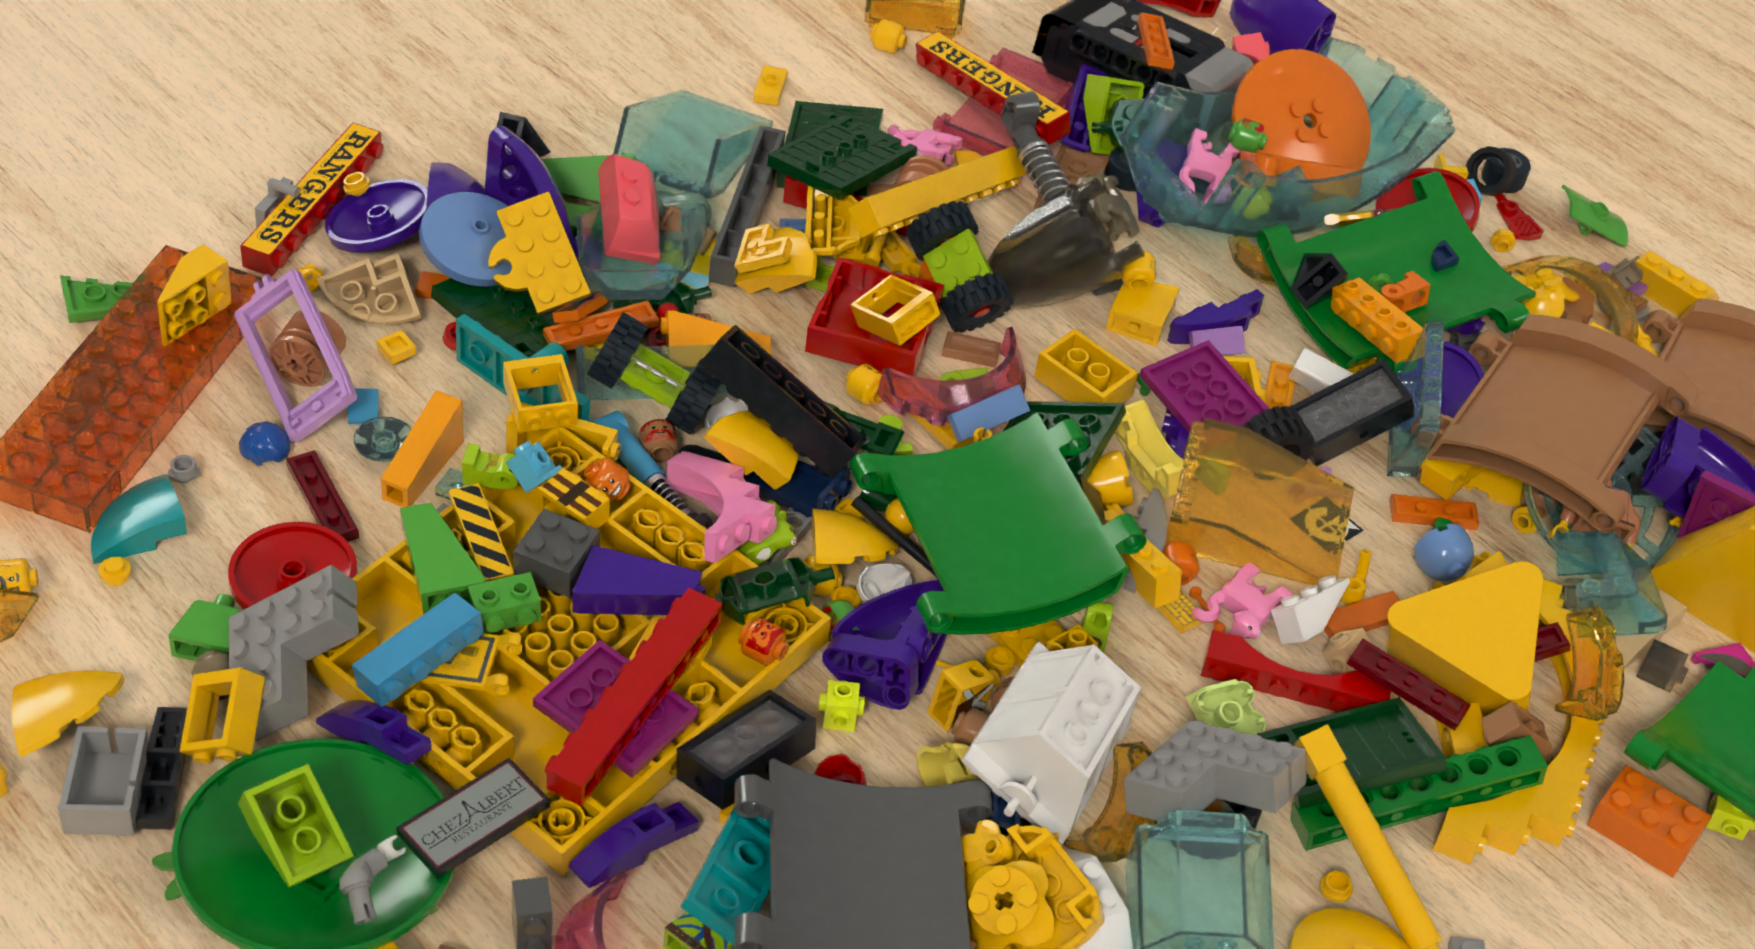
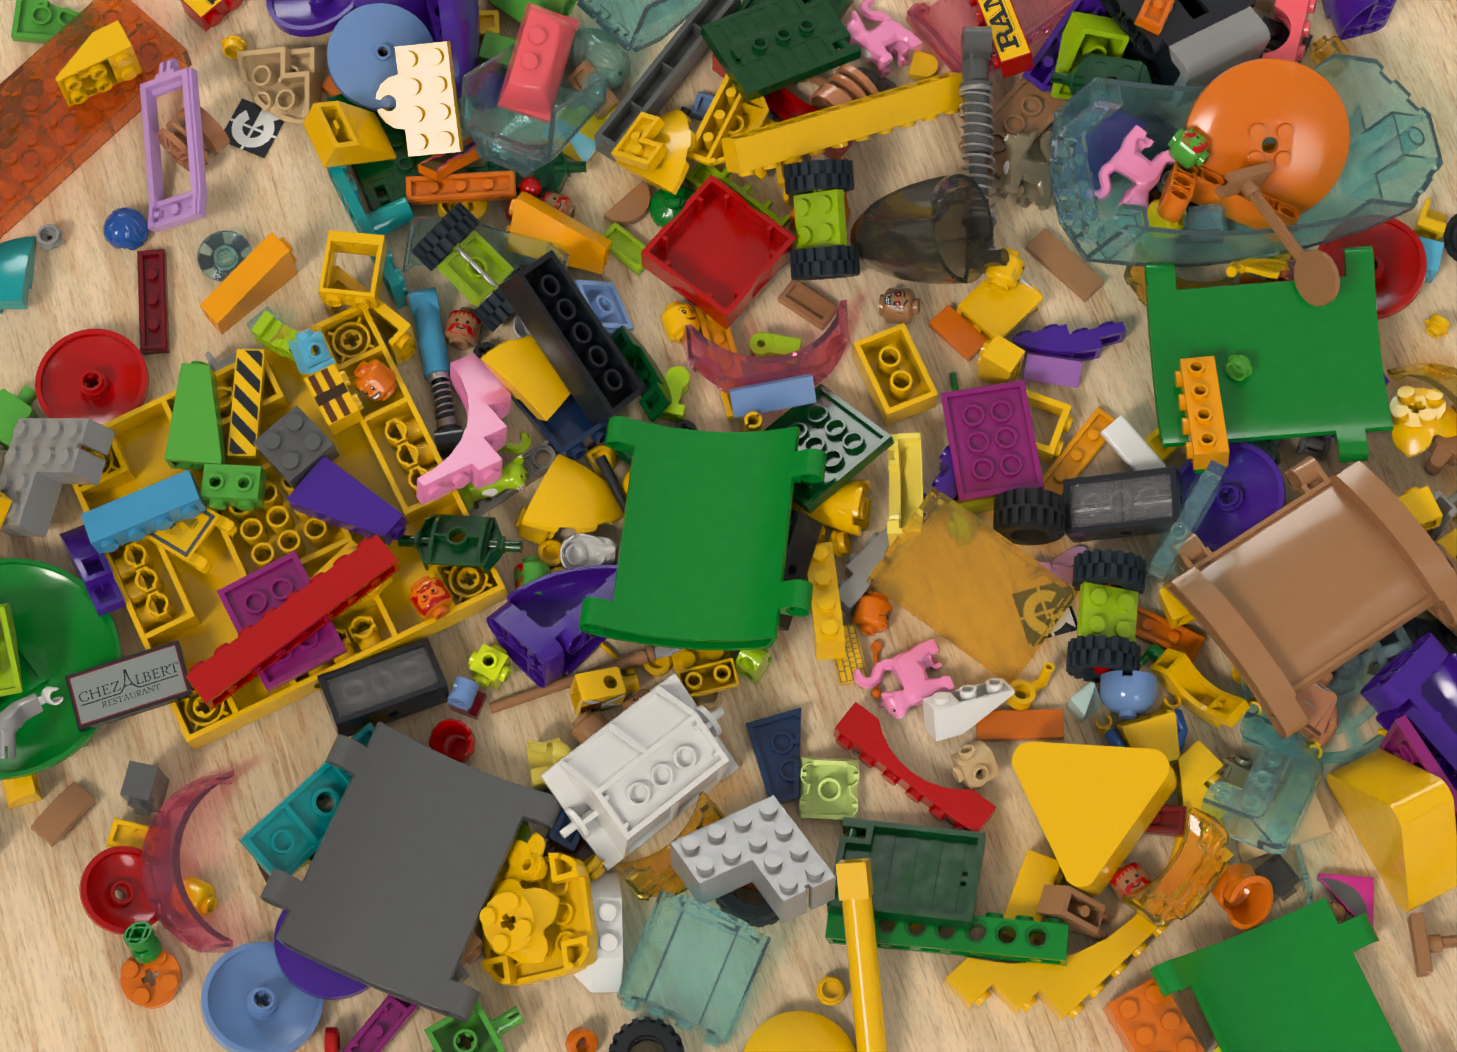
camera: 30 degrees right, 25 degrees up
(362, 338) = (253, 128): none -> sticker
(364, 407) = (223, 212): dark azure slope -> none
(396, 347) = (277, 151): yellow plate -> none
(471, 296) = (346, 134): none -> yellow slope
(630, 839) = (257, 740): dark purple slope -> none
(766, 315) = (631, 207): none -> medium nougat tile
(786, 348) = (625, 247): none -> lime tile
(801, 303) = (666, 206): none -> green hair
(832, 733) = (466, 698): none -> medium blue leg
(916, 314) = (737, 274): yellow window -> none
(991, 651) = (637, 658): none -> medium nougat piece
(1054, 325) = (899, 305): none -> medium nougat head
(1118, 338) = (957, 333): none -> orange tile
(1161, 698) = (777, 753): none -> dark blue wing
(1174, 335) = (999, 361): none -> yellow brick
(1183, 272) = (1064, 265): none -> medium nougat tile
(1317, 277) = (1172, 340): black slope -> none
(1379, 476) = (1106, 613): none -> black plate
(1405, 293) = (1253, 388): orange leg -> none
(1408, 580) = (1085, 702): none -> light aqua slope
(1408, 684) = (999, 824): dark red tile -> none
(1411, 190) = (1314, 270): none -> medium nougat piece
(1443, 257) = (1327, 349): dark blue tile -> none
(1513, 545) = (1197, 694): none -> yellow arch
(1543, 707) = (1128, 879): none -> head
(1651, 681) = (1244, 896): none -> orange helmet
(1688, 642) = (1303, 874): none -> clear light blue piece

